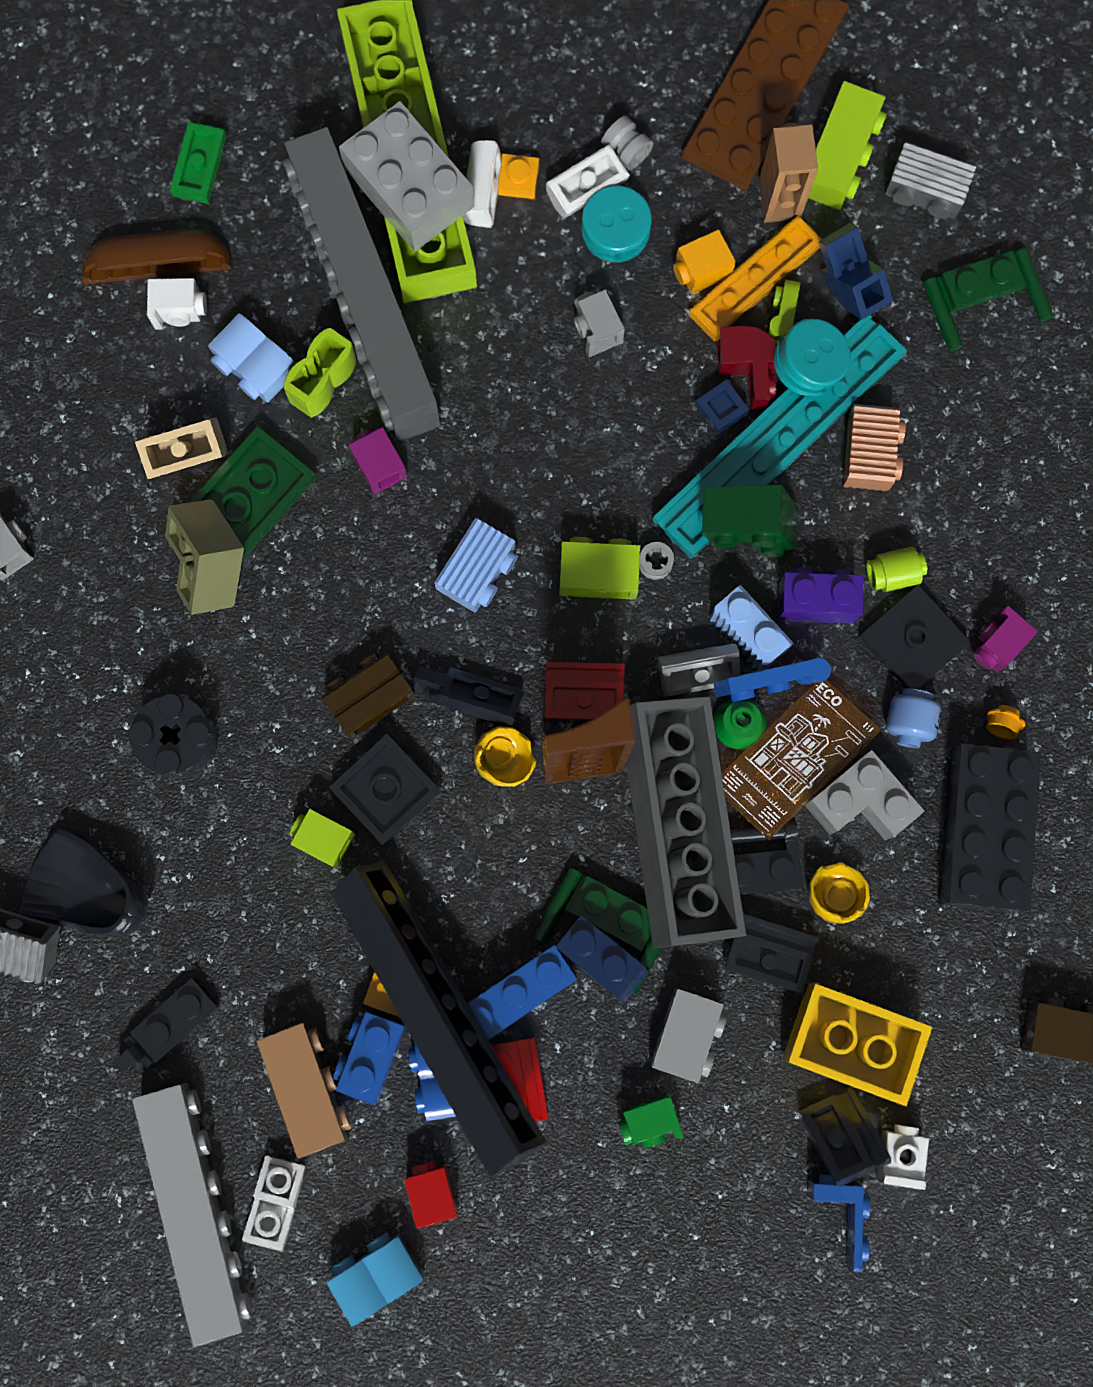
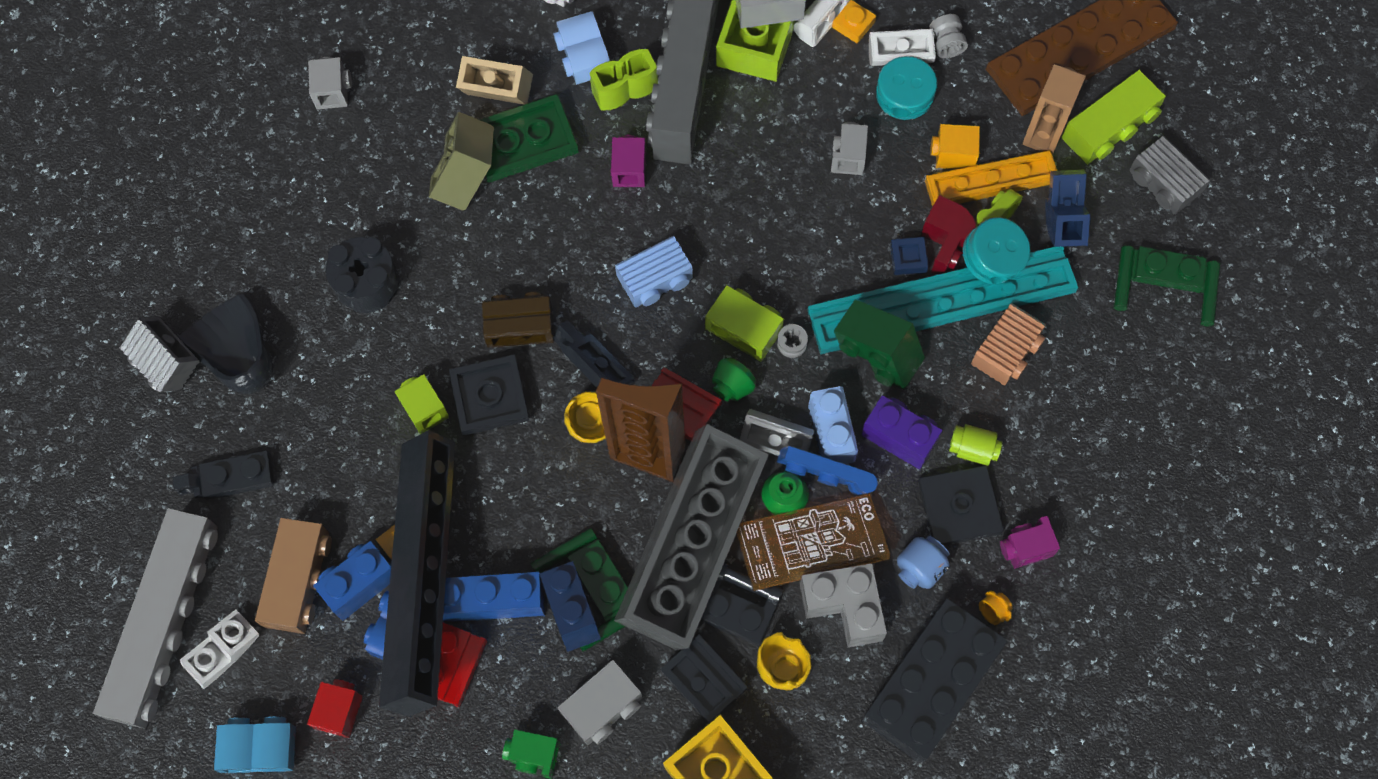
camera: 35 degrees right, 10 degrees down
(623, 636) = (732, 380): none -> green cone

